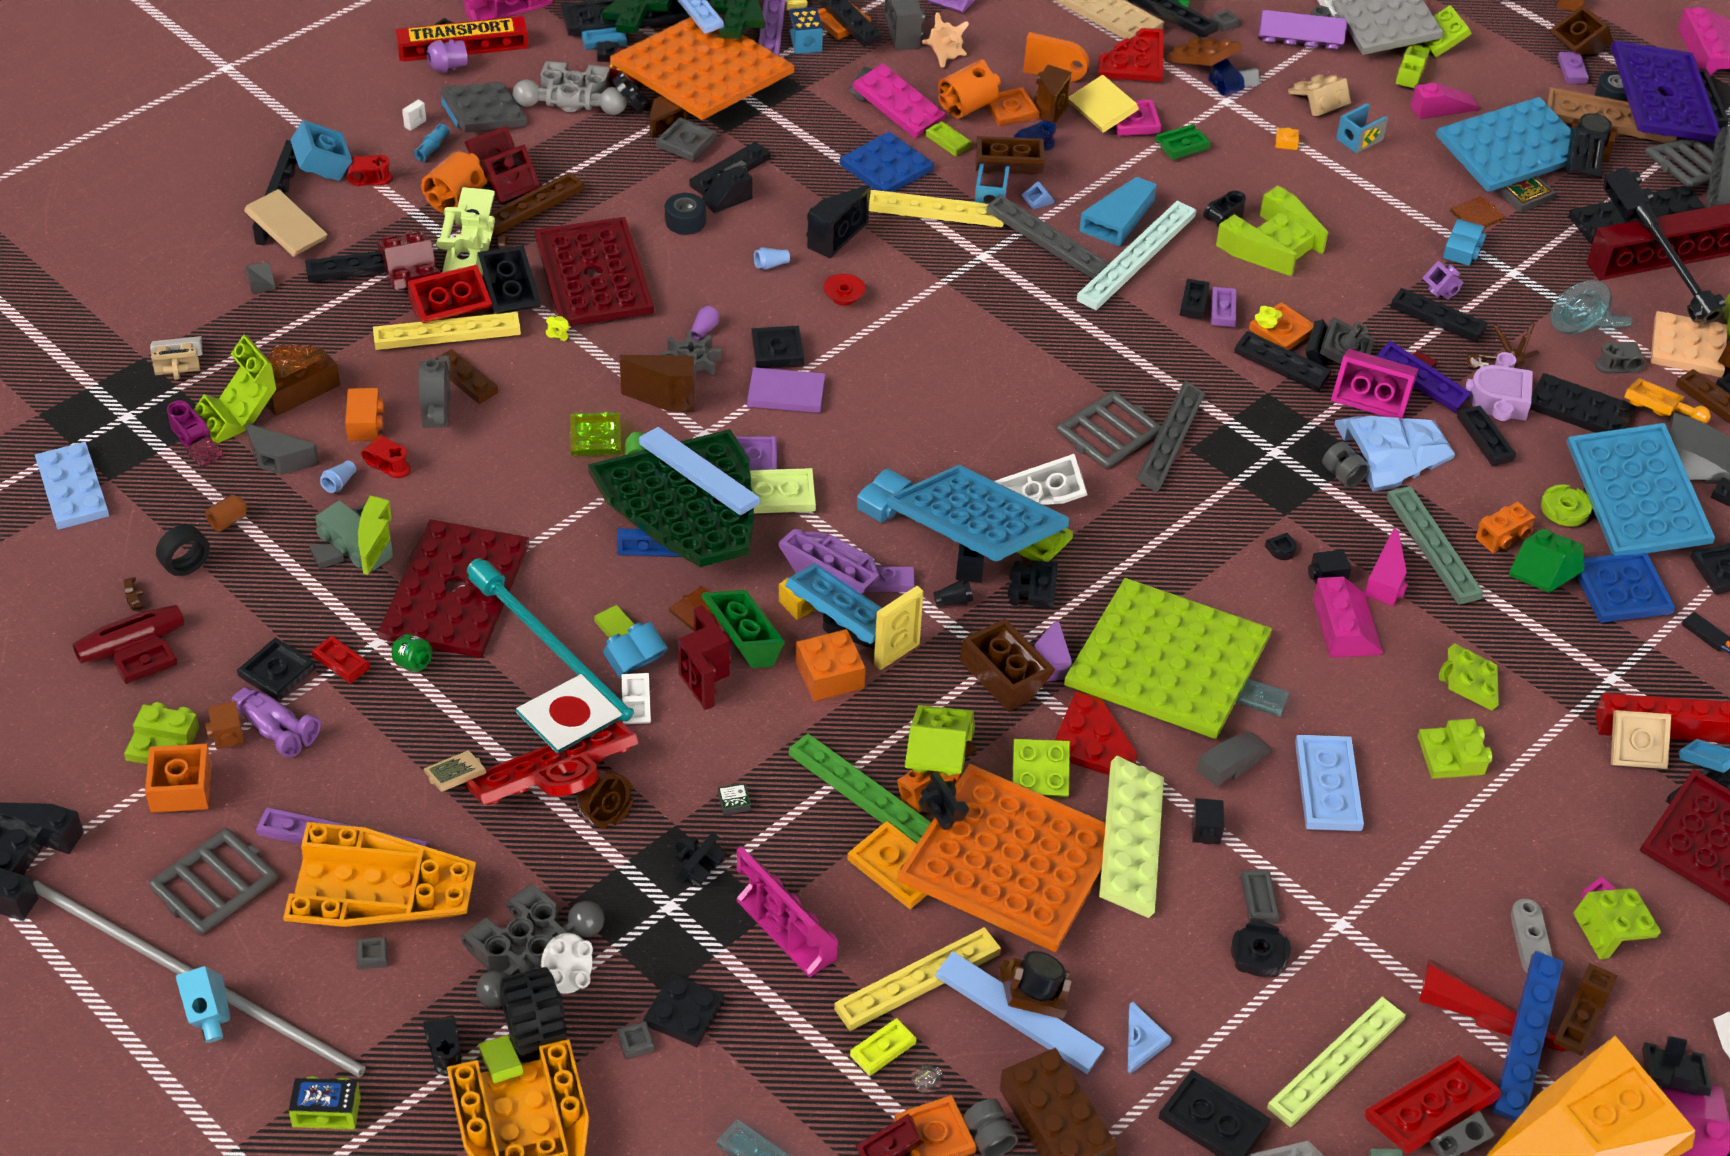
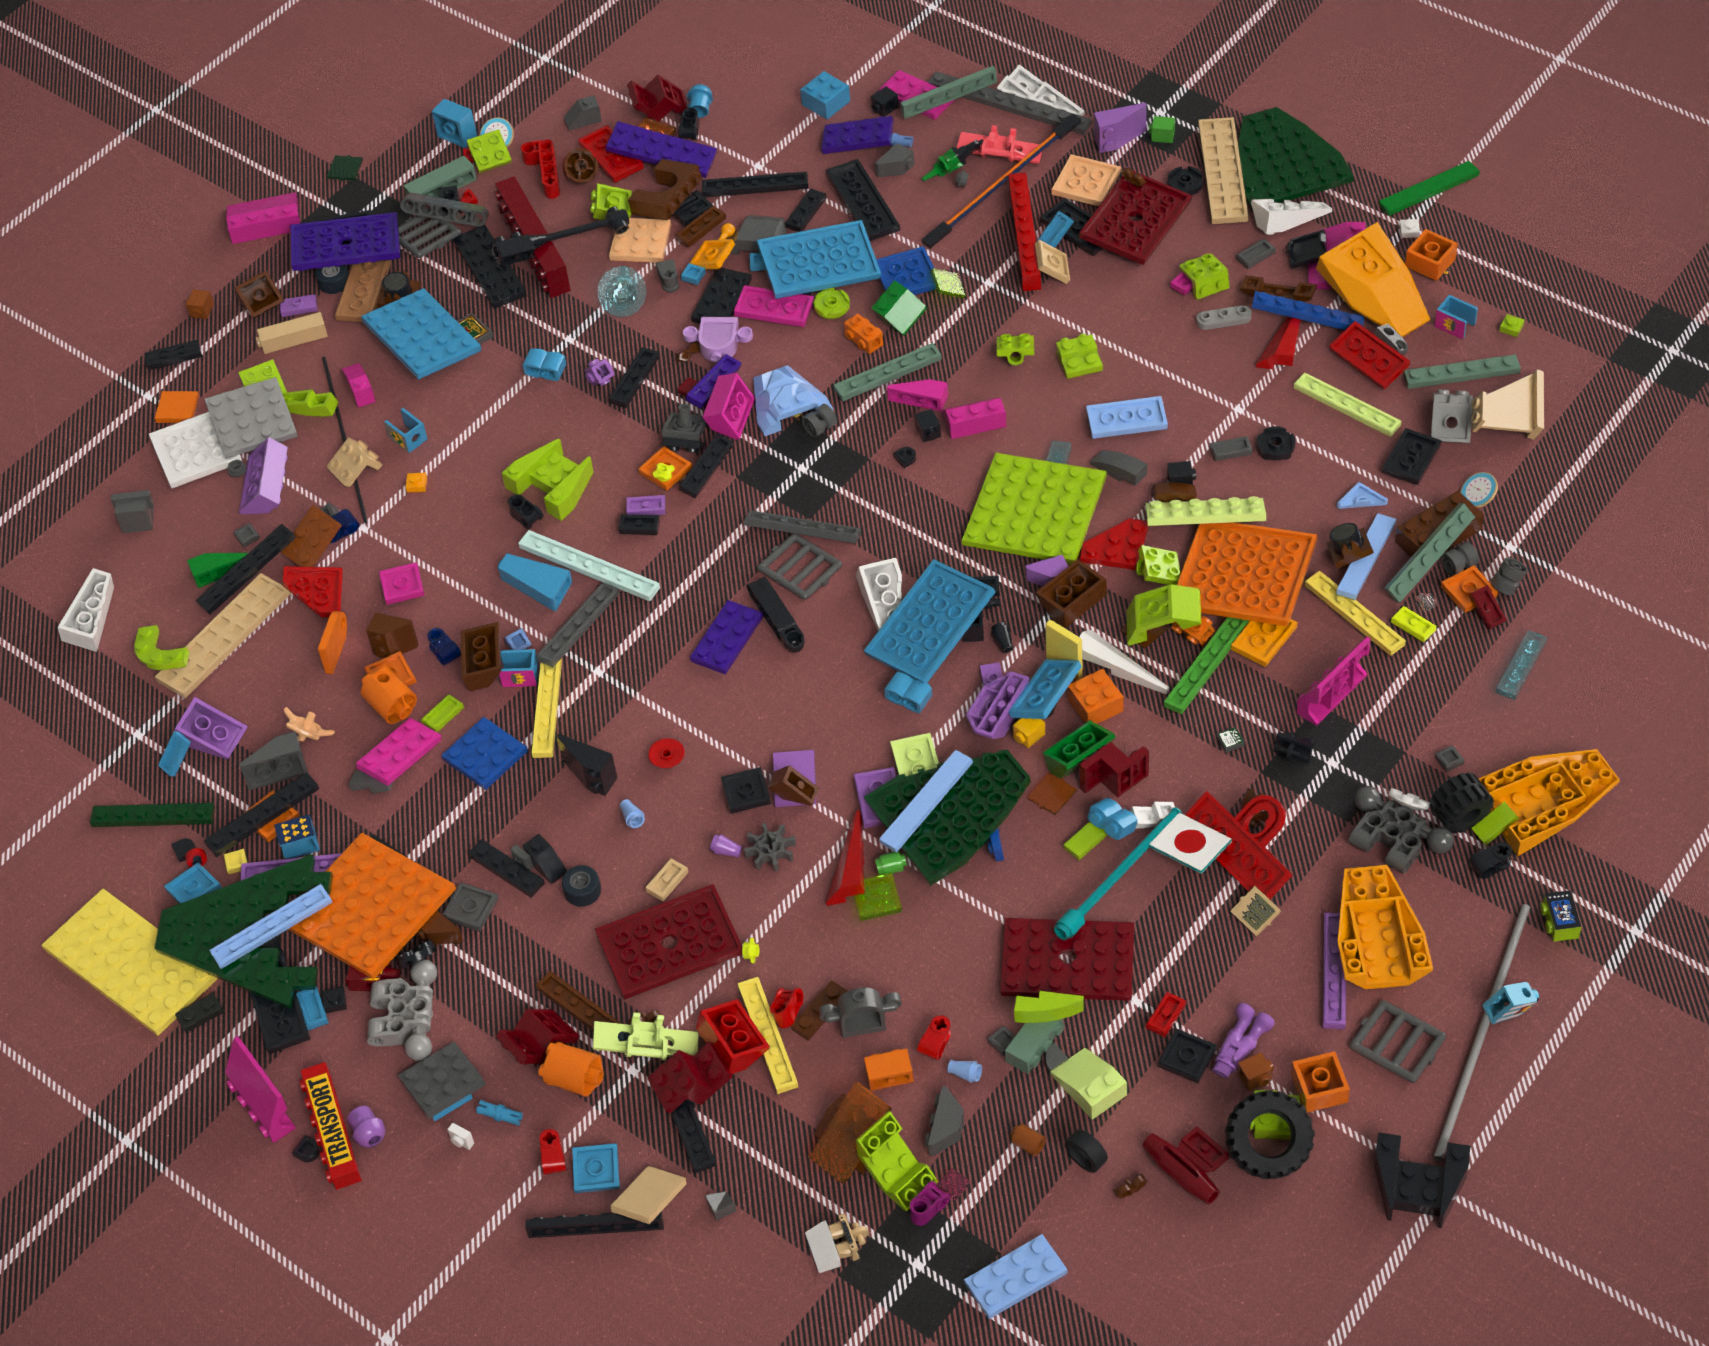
camera: 90 degrees left, 5 degrees up
(116, 701) = (1297, 1120): none -> black tyre
(277, 576) = (1090, 1082): none -> yellowish green slope
(321, 150) = (541, 1190): dark azure brick -> none
(340, 199) = (596, 1168): none -> dark azure plate
(372, 953) = (1430, 925): dark grey tile -> none
(411, 652) = (1150, 965): green head -> none
(471, 342) = (786, 1006): none -> red piece
(508, 279) = (699, 992): black slope -> none
(623, 409) = (849, 872): none -> red wedge
(659, 380) = (818, 846): reddish brown slope -> none
(673, 276) = (667, 880): none -> tan plate
(684, 1010) = (1417, 736): black plate -> none
(761, 375) = (793, 786): none -> reddish brown slope
(909, 683) = (1101, 652): none -> white wedge
(940, 800) = (1221, 603): black hips -> none
(999, 1080) = (1429, 552): none -> sand green plate
(1010, 357) = (726, 637): none -> dark purple plate
(1032, 396) = (776, 614): none -> black piece
(1103, 103) = (394, 598): light yellow tile -> none
(1178, 811) = (1169, 491): none -> reddish brown slope
(1182, 141) = (433, 548): green plate -> none
(1355, 93) = (344, 438): none -> black piece
(1478, 212) = (500, 361): clear orange piece -> none
(1486, 435) = (766, 347): black plate -> none
(1518, 353) = (677, 330): reddish brown plant -> none
(1524, 57) = (291, 333): none -> tan brick
(1552, 459) = (761, 305): none -> dark pink plate
(1581, 151) = (431, 289): black plate -> none
(1602, 624) = (948, 283): none -> clear neon green piece
(1621, 380) = (693, 274): none -> dark azure plate
(1674, 1006) = (1255, 253): none -> dark grey tile

